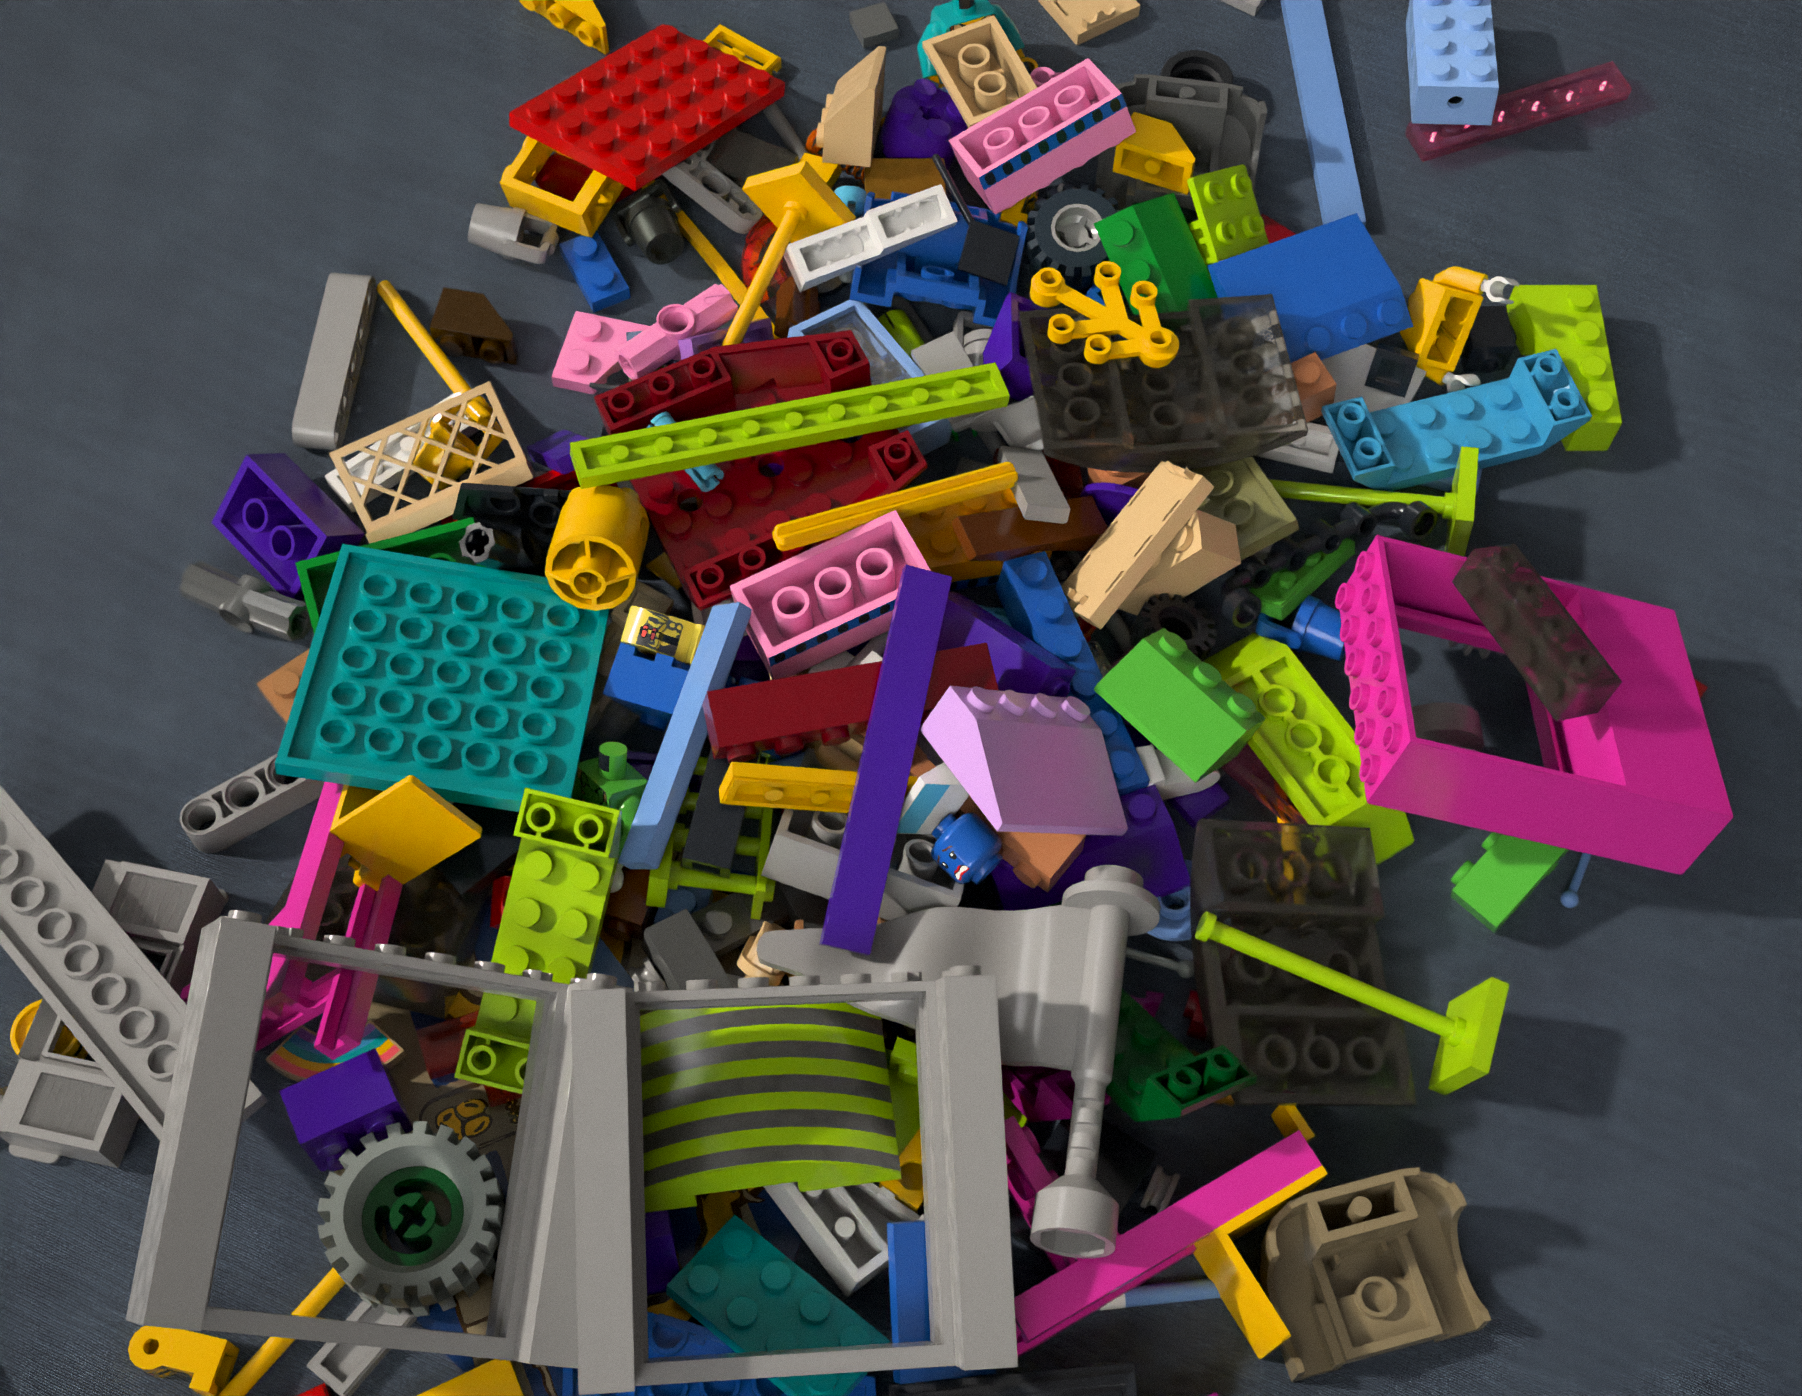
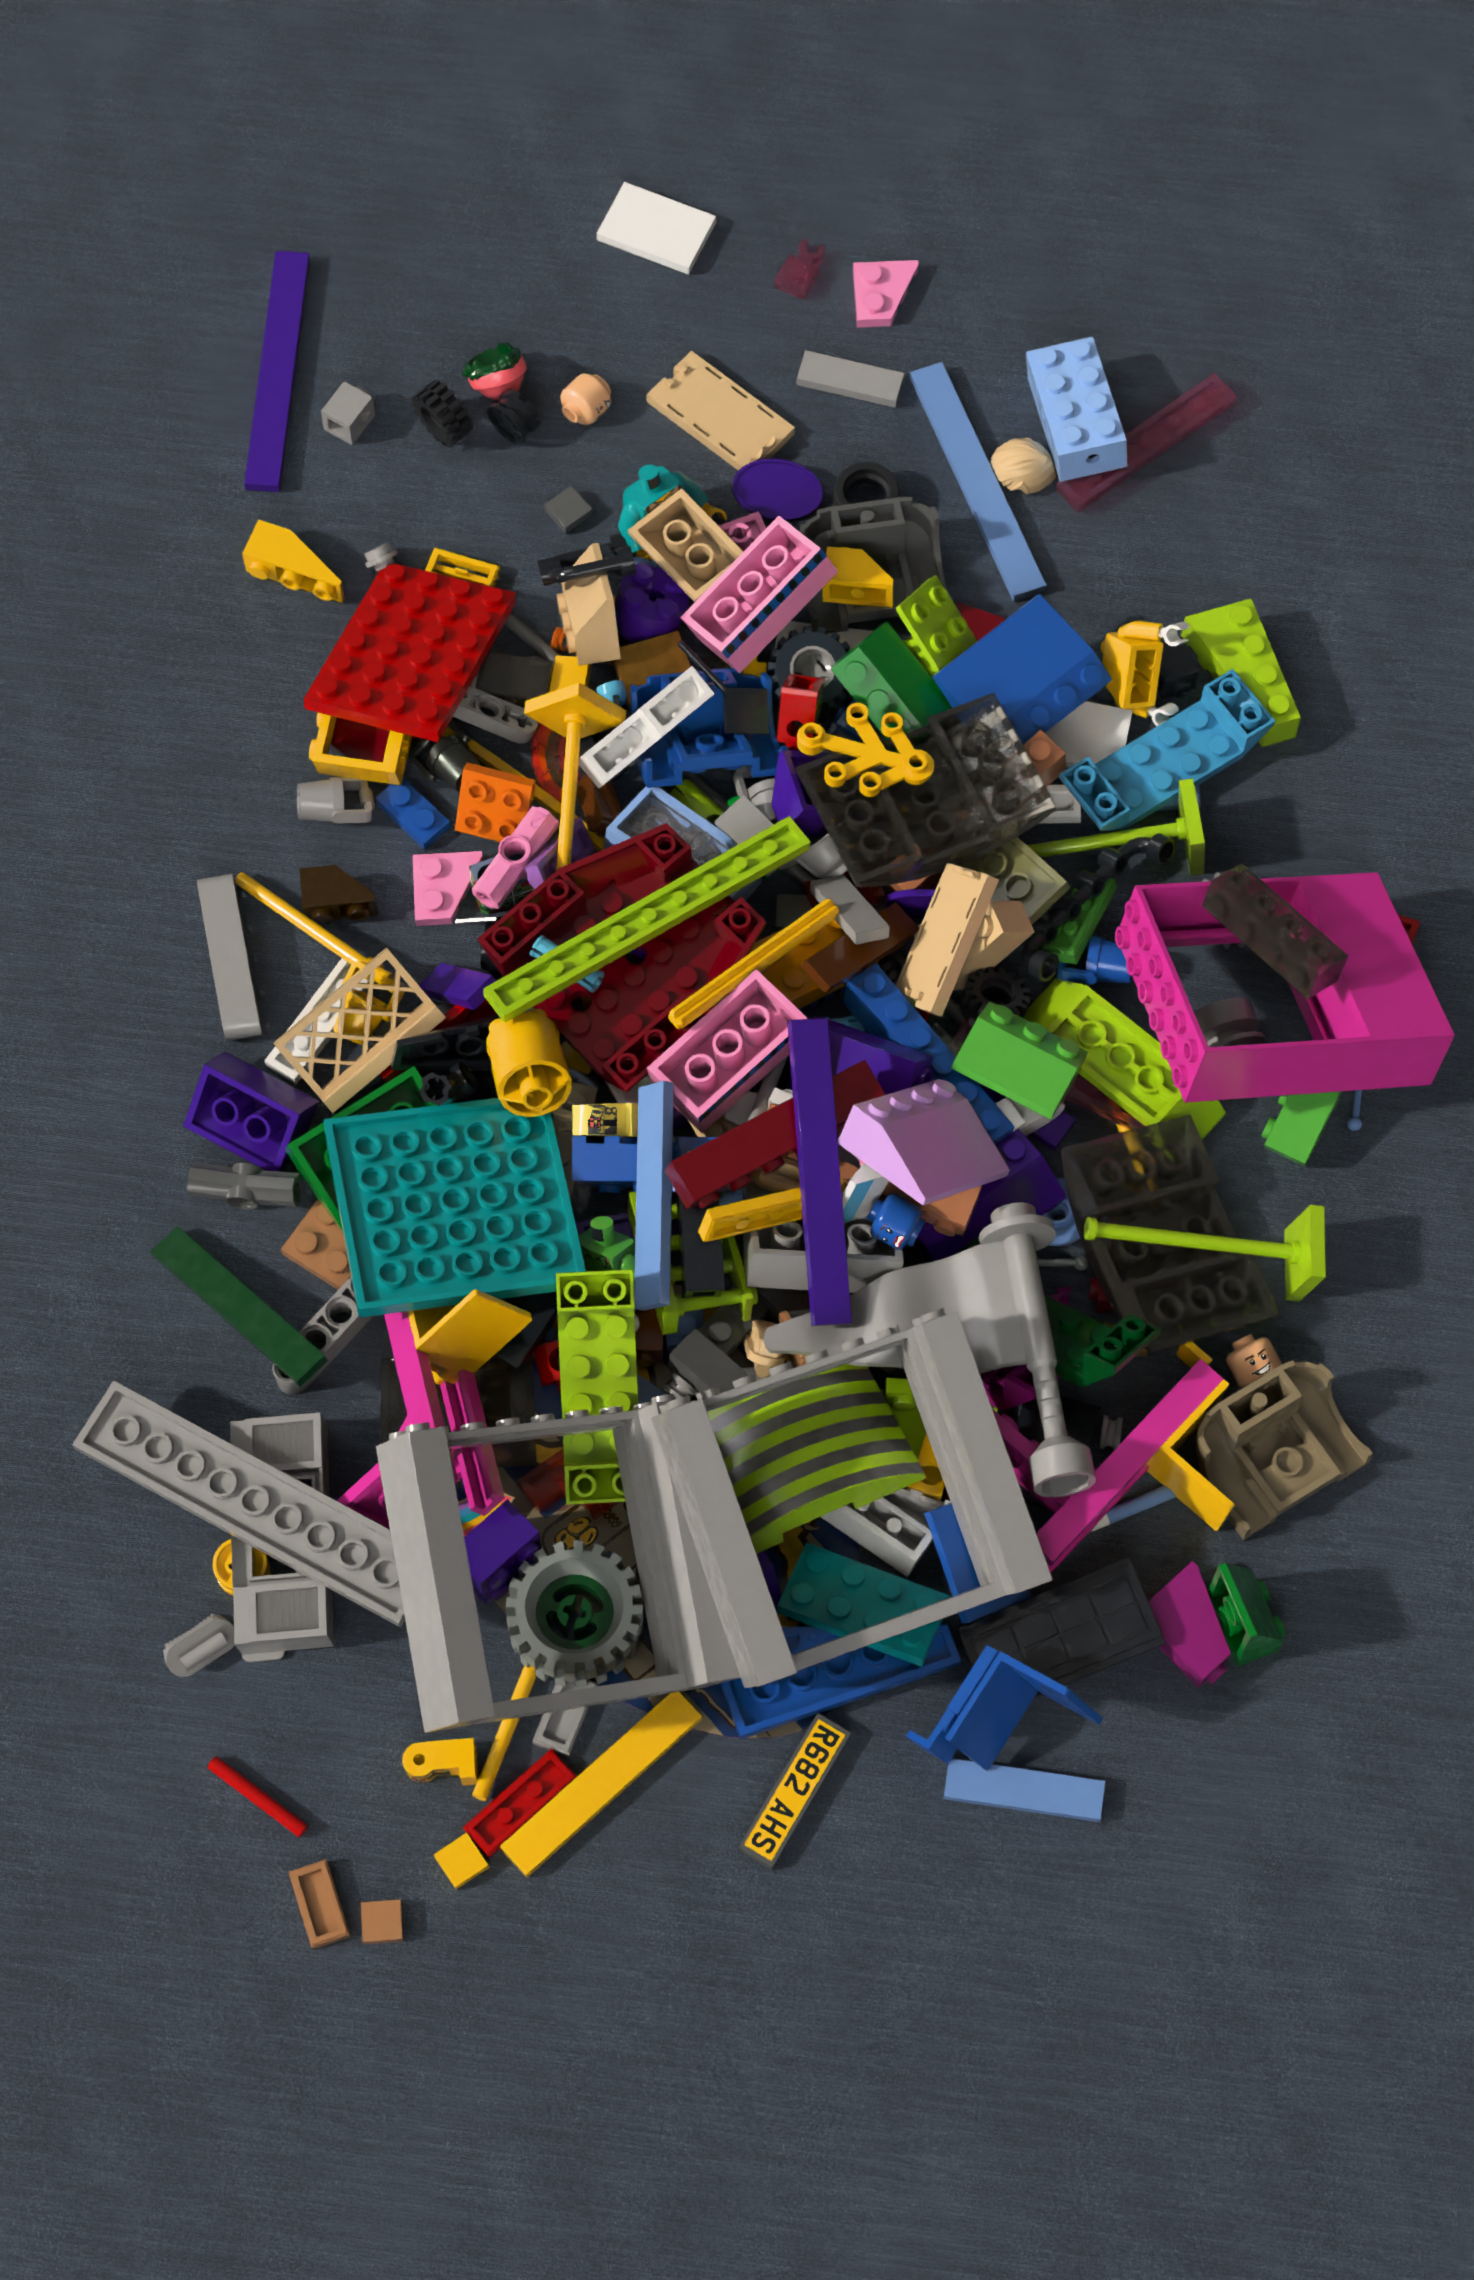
camera: 15 degrees left, 5 degrees up
(177, 734) = (239, 1306): none -> dark green tile
(658, 15) = (380, 556): none -> light grey plate
(676, 269) = (492, 802): none -> orange plate
(897, 65) = (615, 557): none -> black bar
(1046, 248) = (799, 702): none -> red torso
(1107, 47) = (777, 489): none -> dark purple piece
(1365, 1150) = (1251, 1359): none -> light nougat head
(1376, 99) = (1023, 465): none -> tan hair
(1391, 369) = (1104, 720): black tile -> none

